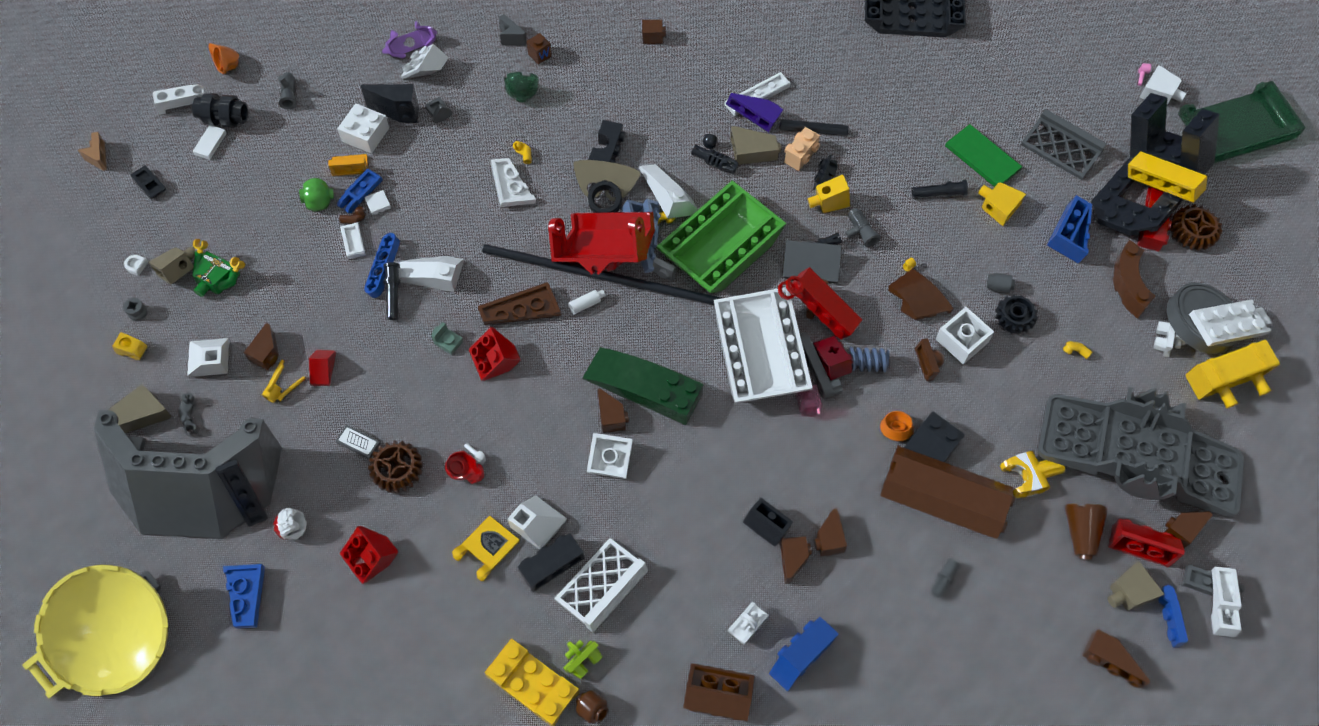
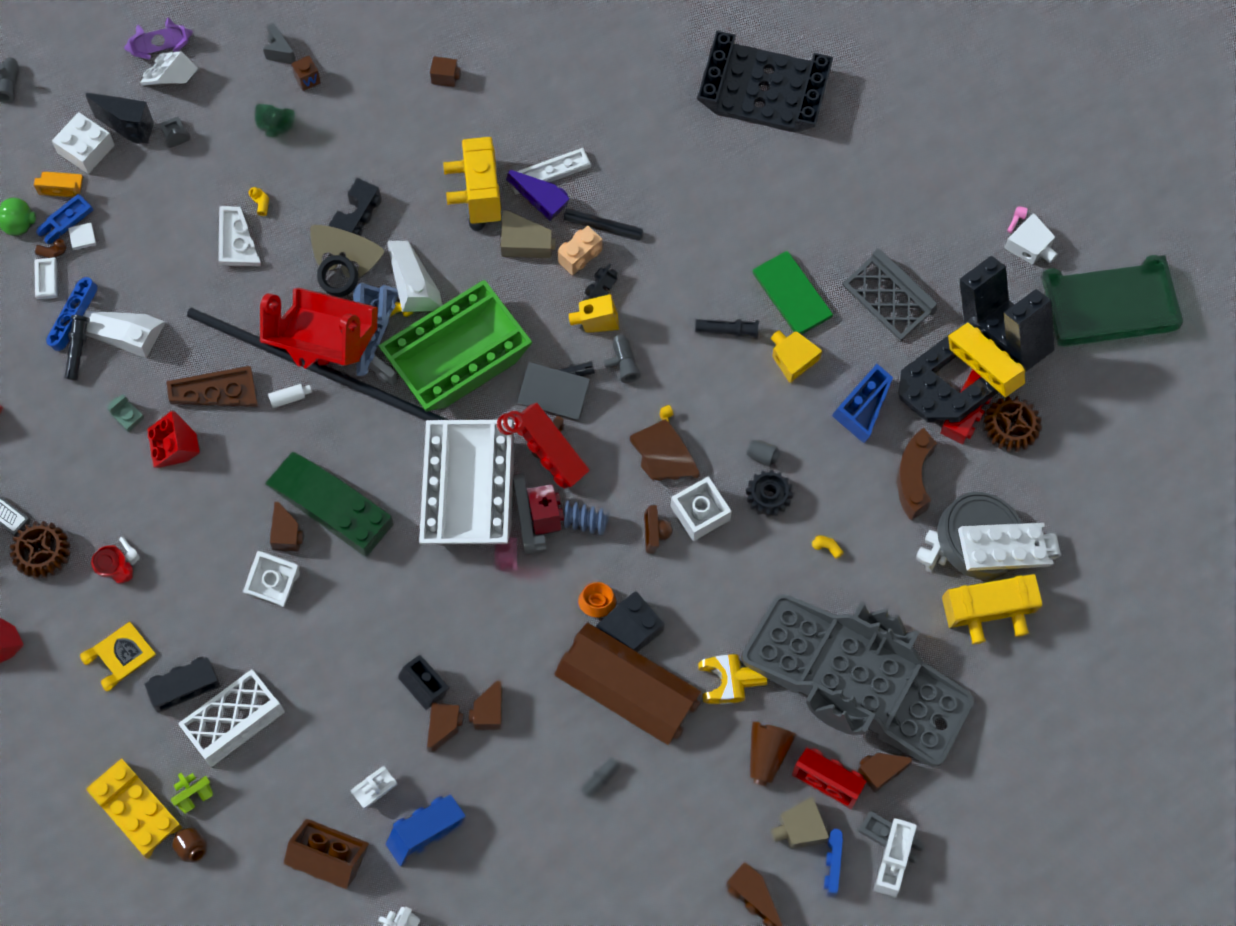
camera: 10 degrees right, 5 degrees up
(536, 521) = (177, 636): white slope -> none
(707, 105) = (481, 180): none -> yellow piece
(716, 159) = (477, 246): black hinge -> none

